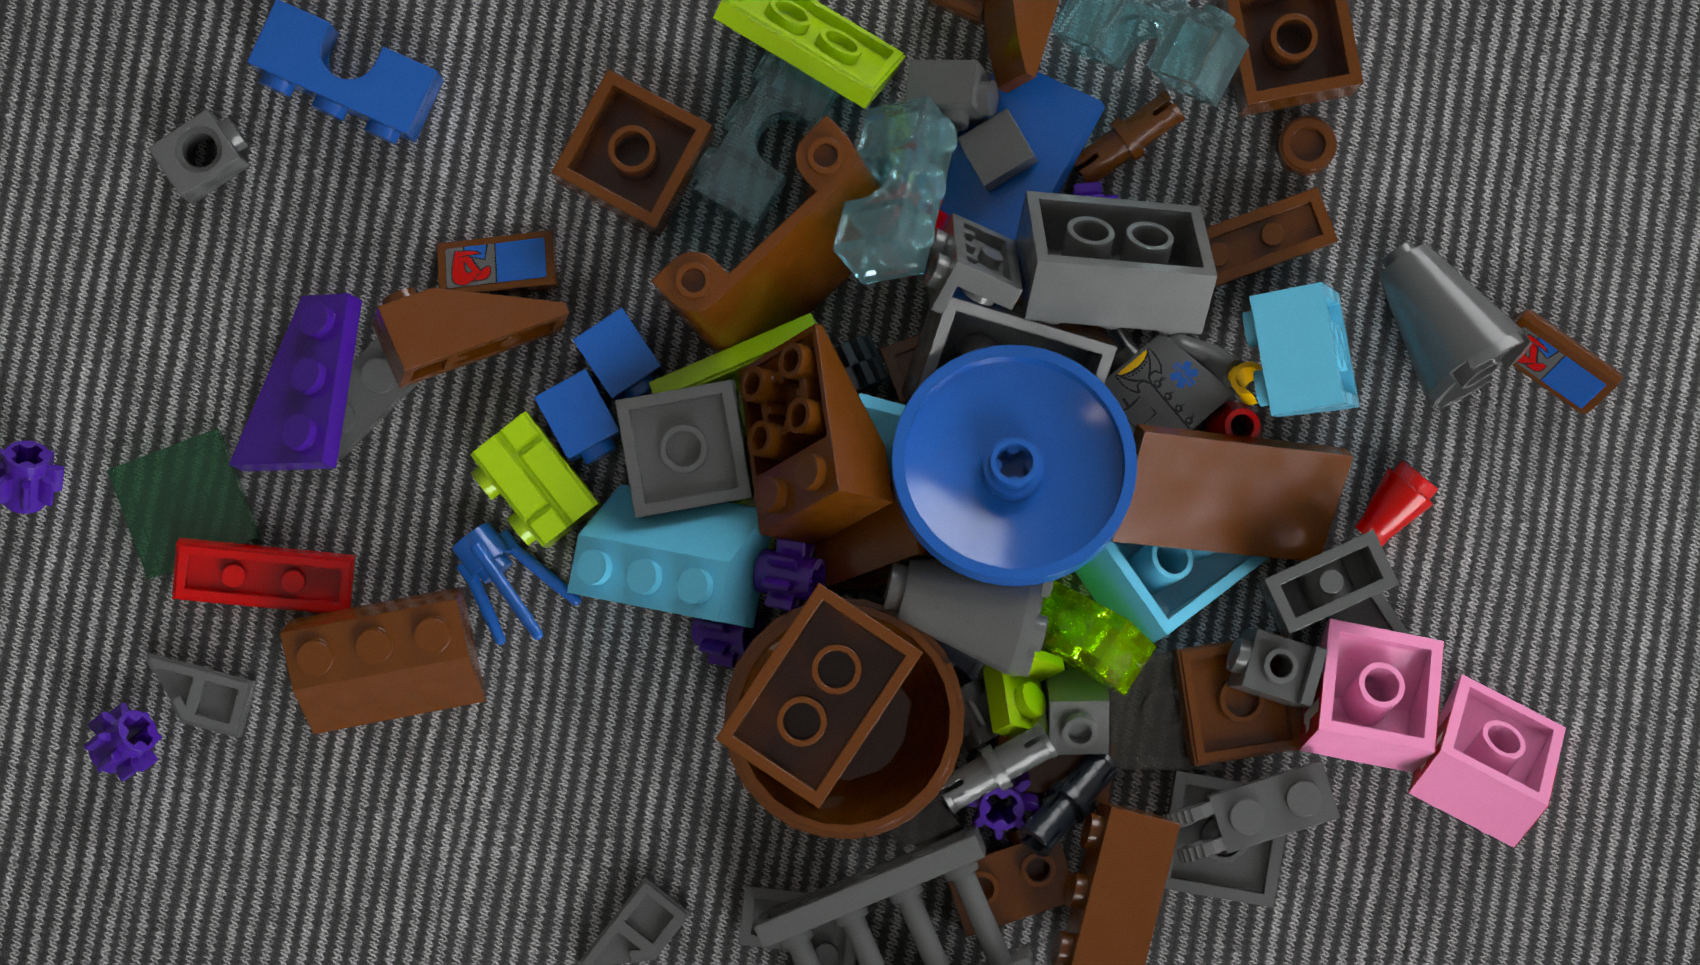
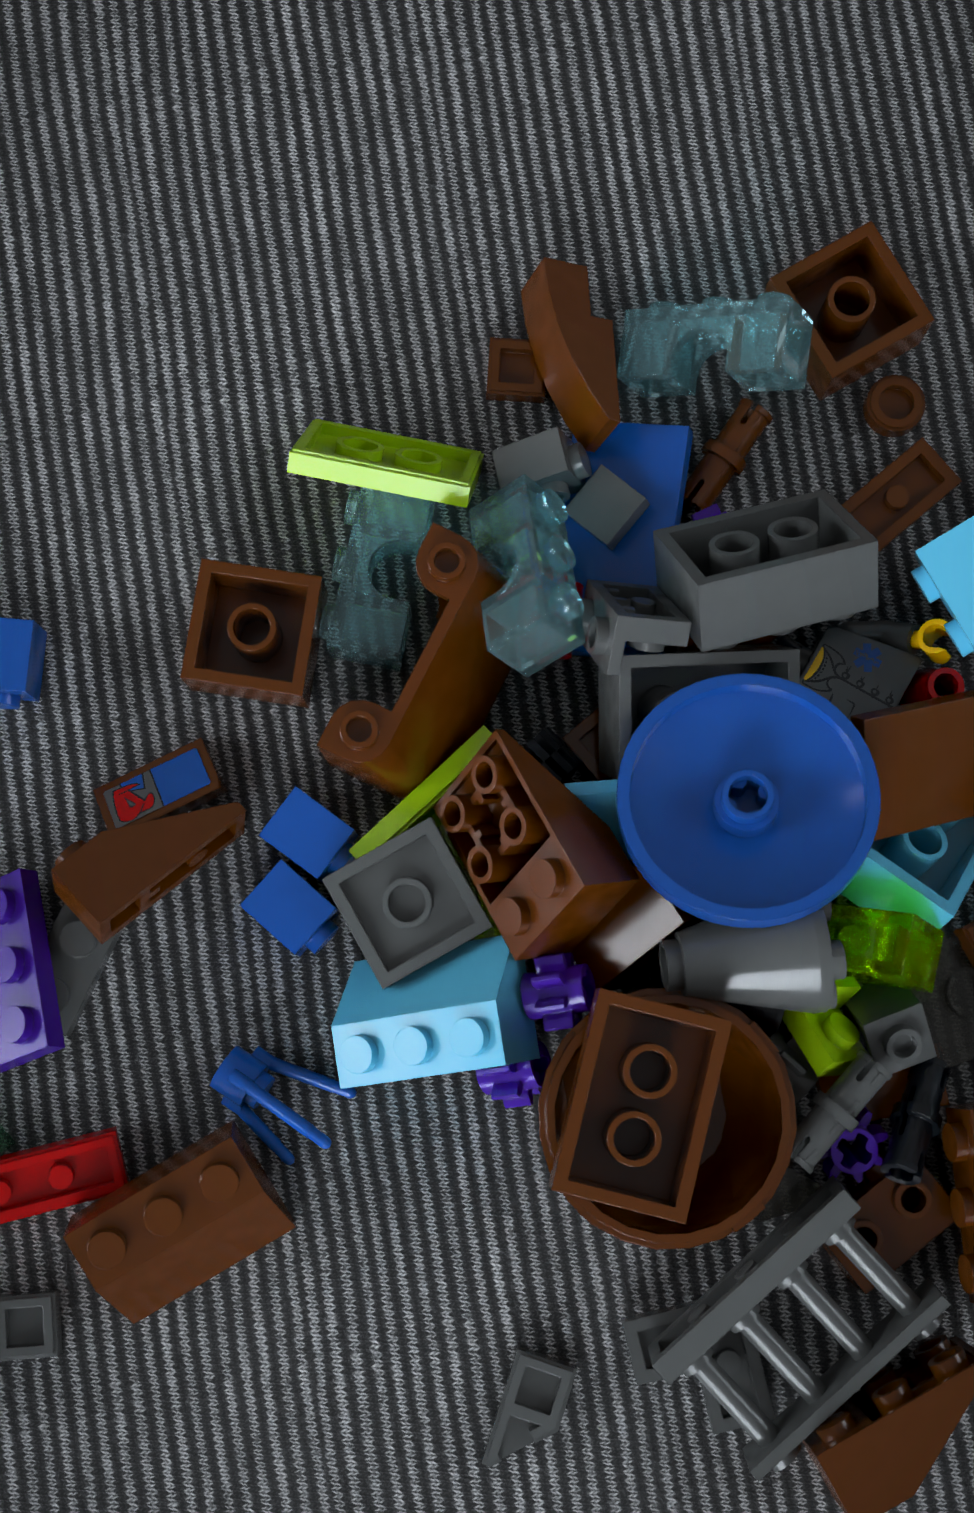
camera: 20 degrees left, 5 degrees down
(534, 481) = (268, 989): lime brick -> none

